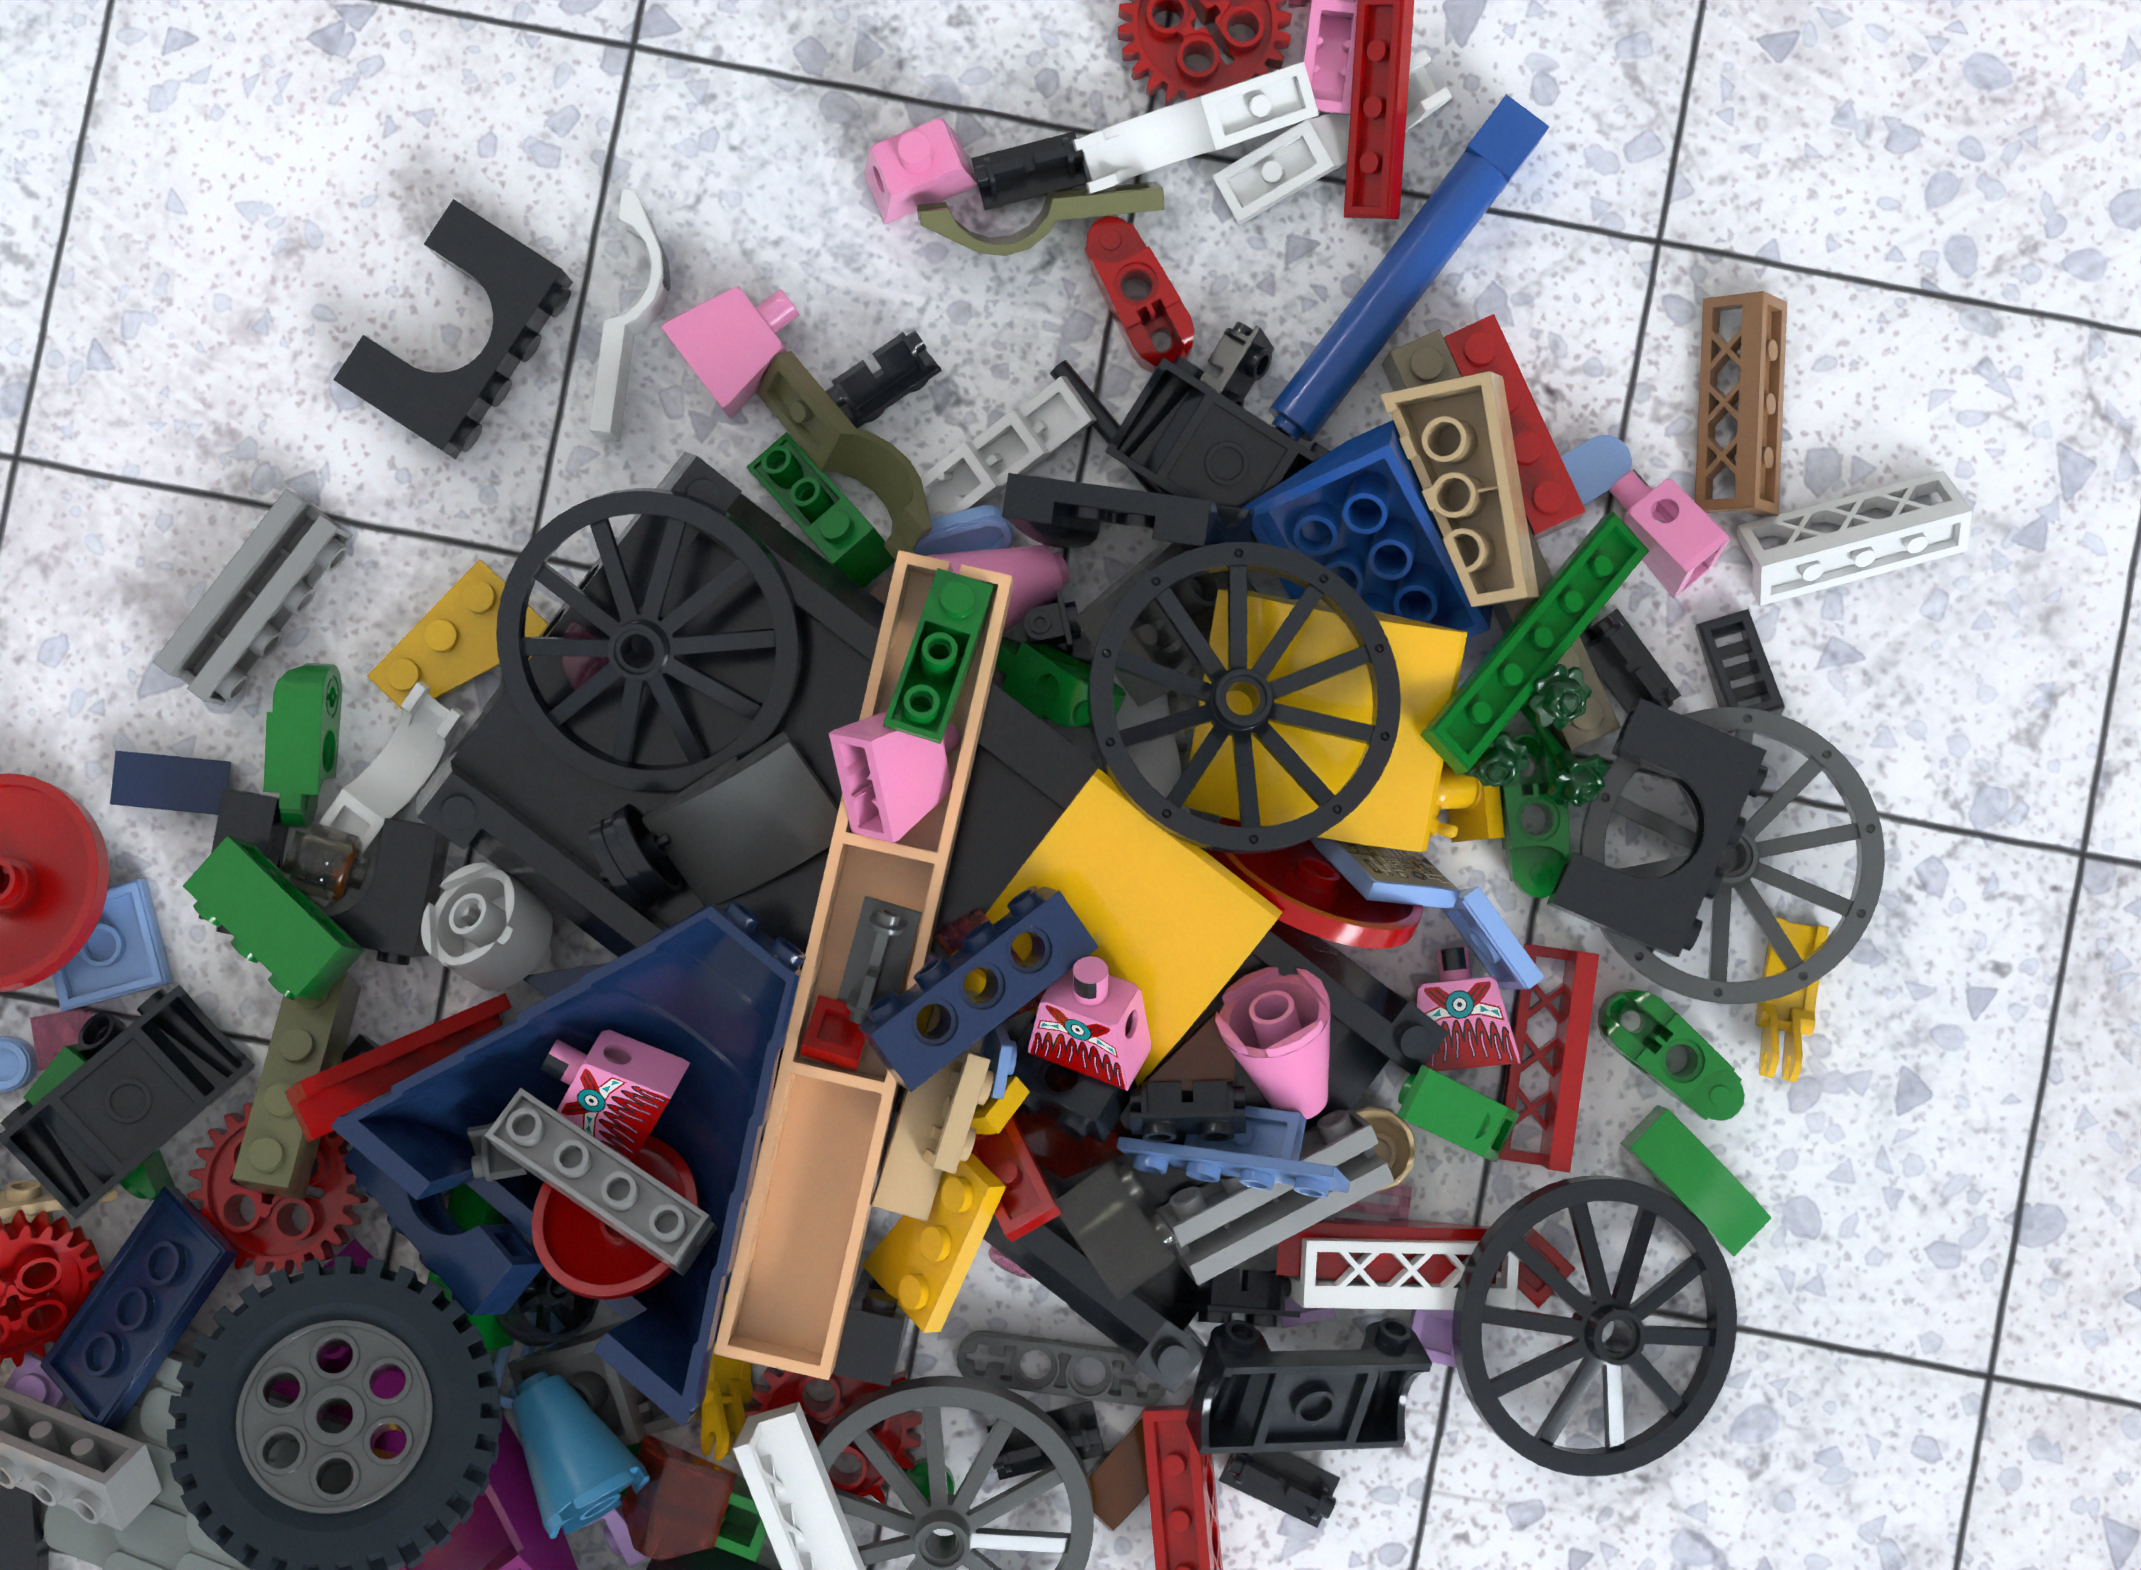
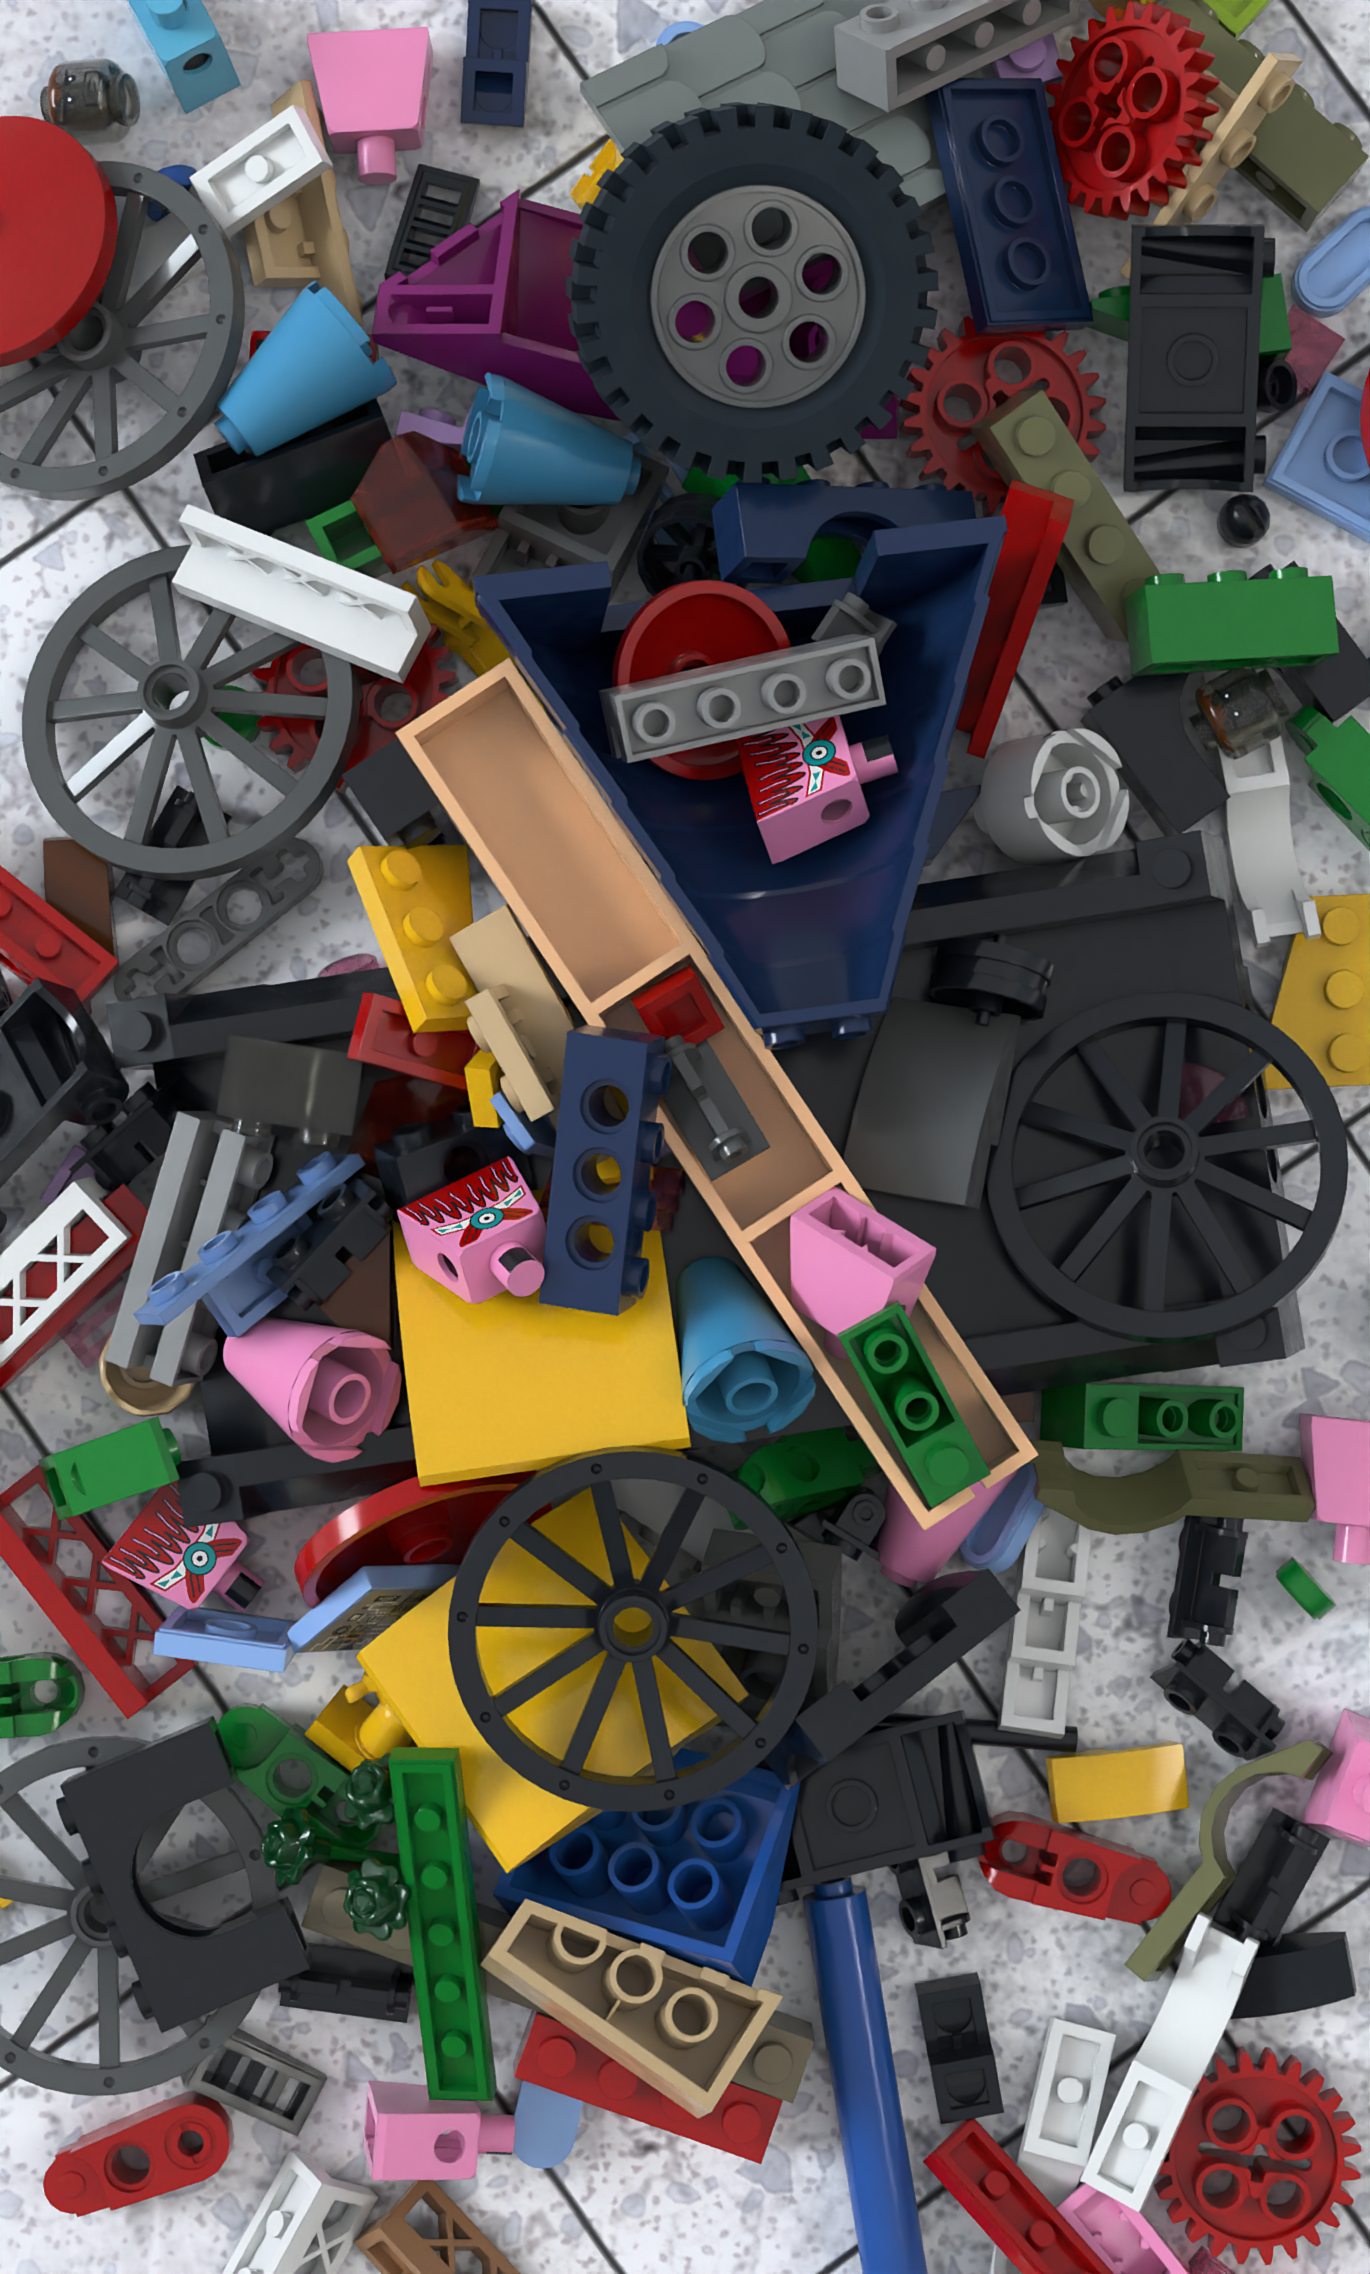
camera: 135 degrees right, 0 degrees up
(214, 974) = (1234, 527): none -> black hinge
(833, 314) = (1305, 1589): none -> green tile
(951, 277) = (1239, 1721): none -> black hinge
(1016, 793) = (736, 1355): none -> dark azure cone
(1059, 317) = (1117, 1782): none -> yellow slope
(1071, 100) = (1297, 1975): none -> black slope
(1310, 262) = (959, 2048): none -> black slope
(1890, 708) = (94, 2176): none -> red piece

